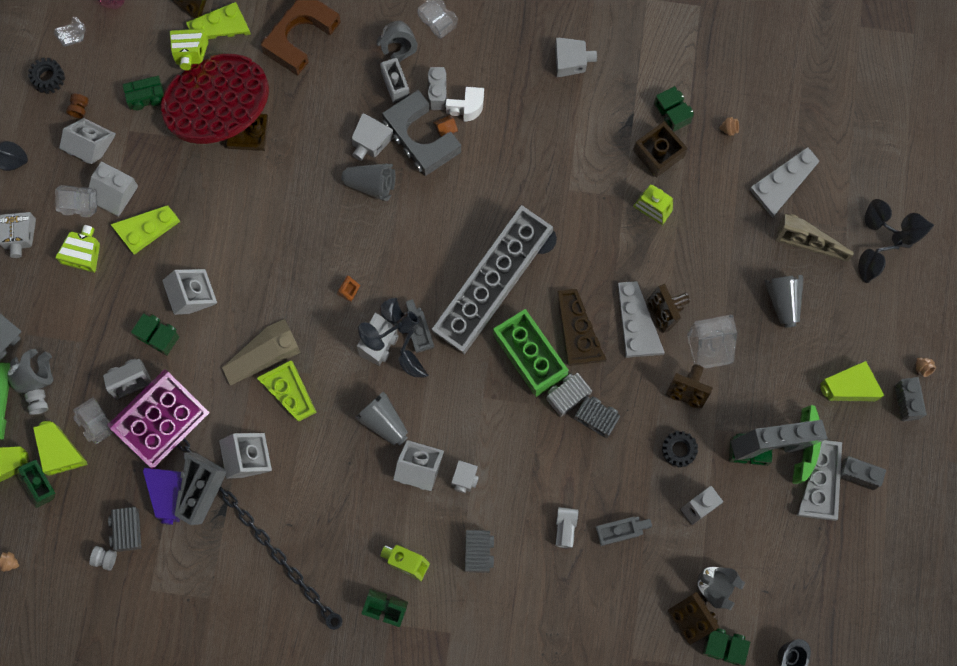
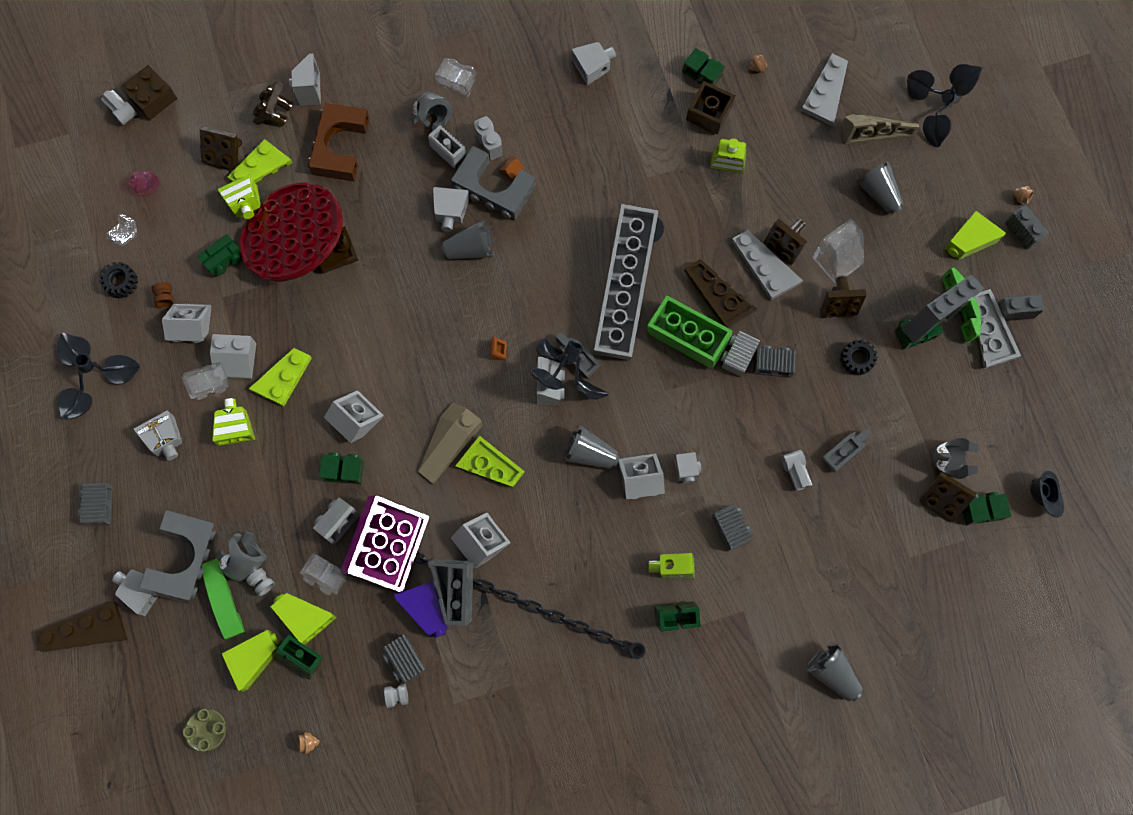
camera: 25 degrees left, 0 degrees up
(470, 107) = (524, 142): white brick -> none
(702, 505) = (905, 393): light grey torso -> none

